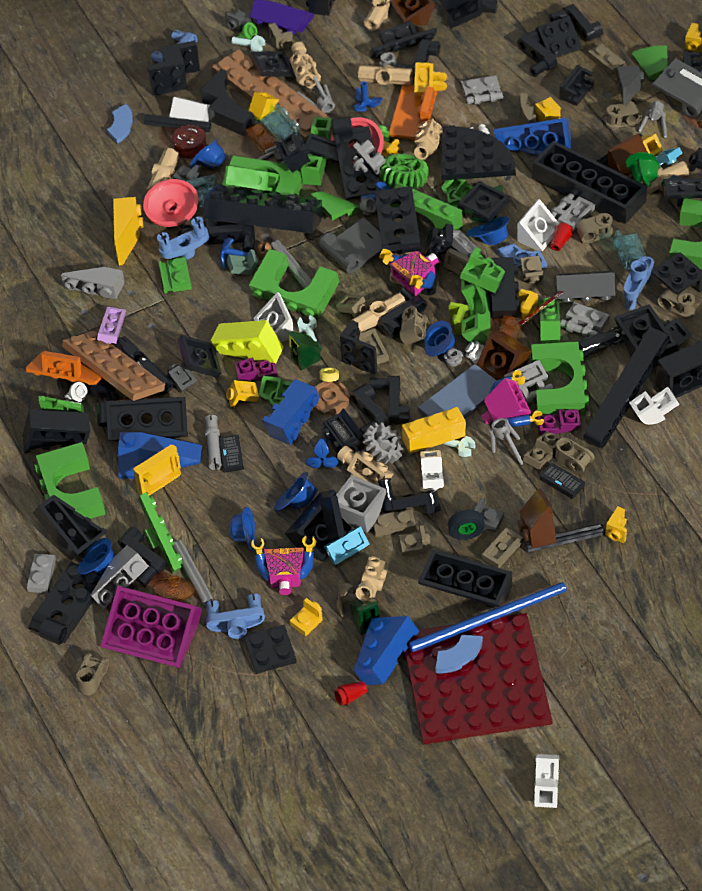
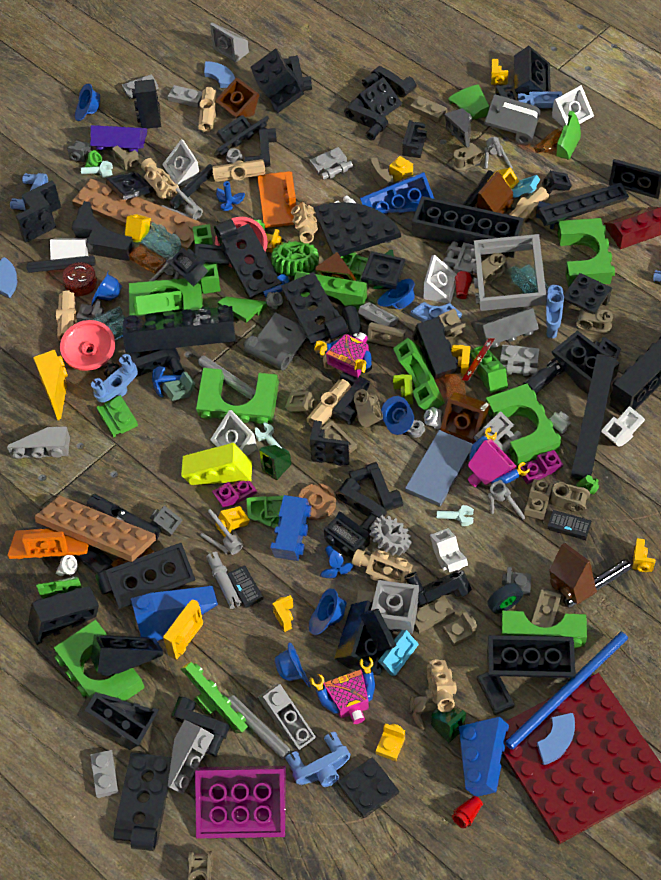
camera: 20 degrees left, 5 degrees up
(91, 474) = (121, 653): none -> black slope
(97, 557) = (157, 742): blue piece -> none
(111, 325) = (77, 486): lavender plate -> none
(174, 588) = (247, 751): clear orange dish -> none
(199, 356) = (176, 495): black plate -> none
(221, 569) = (286, 716): none -> light grey slope
(234, 412) = (231, 542): none -> light grey plant
(256, 479) = (282, 612): none -> yellow bracket
(260, 253) = (196, 372): medium nougat hinge -> none
(329, 374) = (307, 478): light yellow tile -> none
(331, 57) = (181, 164): none -> white slope
(333, 80) = (192, 186): none -> black axle
(374, 162) = (267, 258): light grey hips -> none
(423, 604) = (495, 693): none -> black tile
(424, 77) = (280, 165): yellow hinge -> none
(433, 430) = (433, 509): yellow brick -> none
(436, 187) = (335, 267): none -> reddish brown slope
(443, 240) = (363, 315): black bracket -> none
(482, 271) = (415, 339): bright green slope -> none
(521, 565) = (572, 625): none -> bright green arch
(597, 386) = (560, 421): none -> white plate
(597, 449) = (589, 484): none -> bright green plate
(610, 206) = (509, 244): none -> light grey window
(643, 167) = (516, 202): green piece -> none

